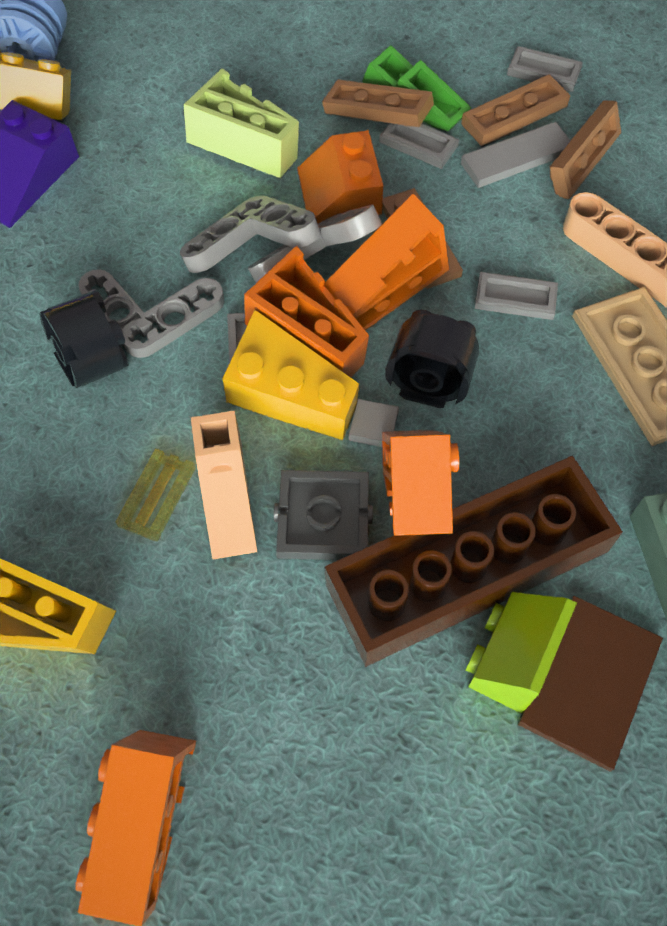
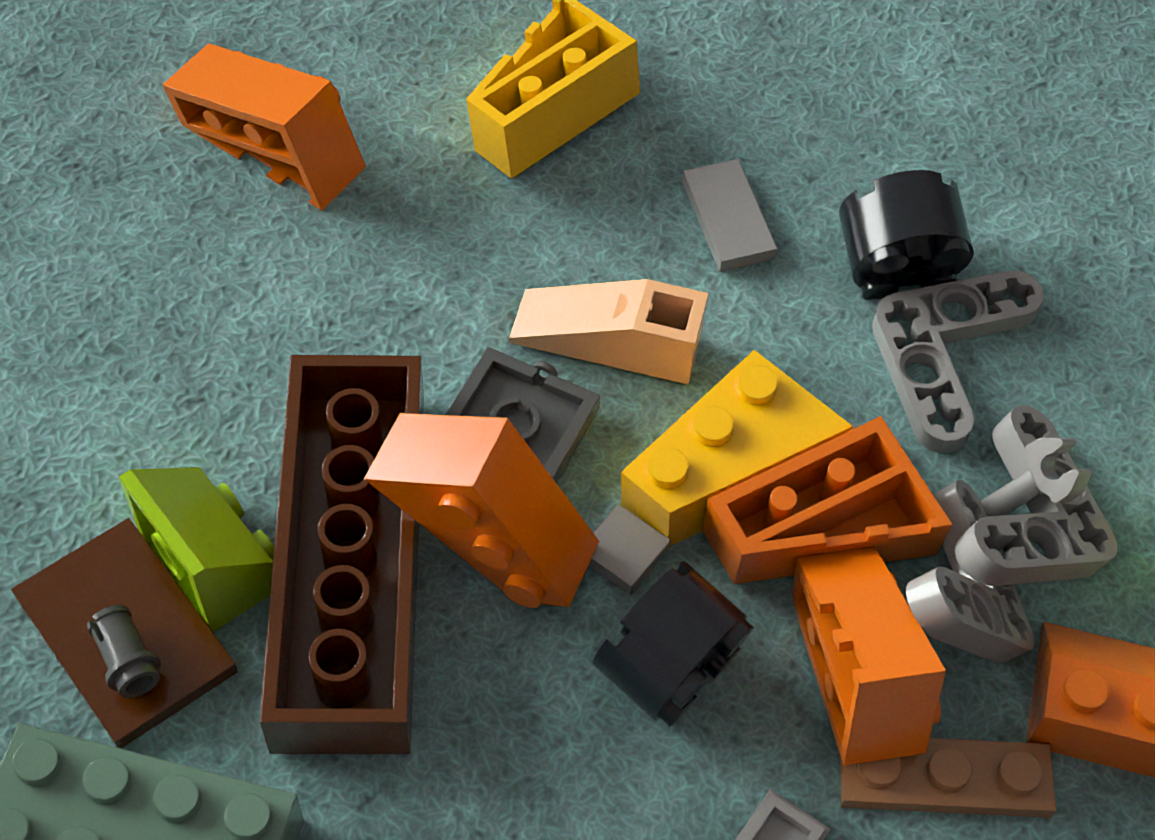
camera: 110 degrees right, 5 degrees down
(91, 461) = (729, 215): none -> light grey tile
(138, 526) = (628, 223): clear yellow tile -> none
(236, 226) = (1039, 478): none -> light grey bar
(617, 655) = (124, 652): none -> dark grey pin

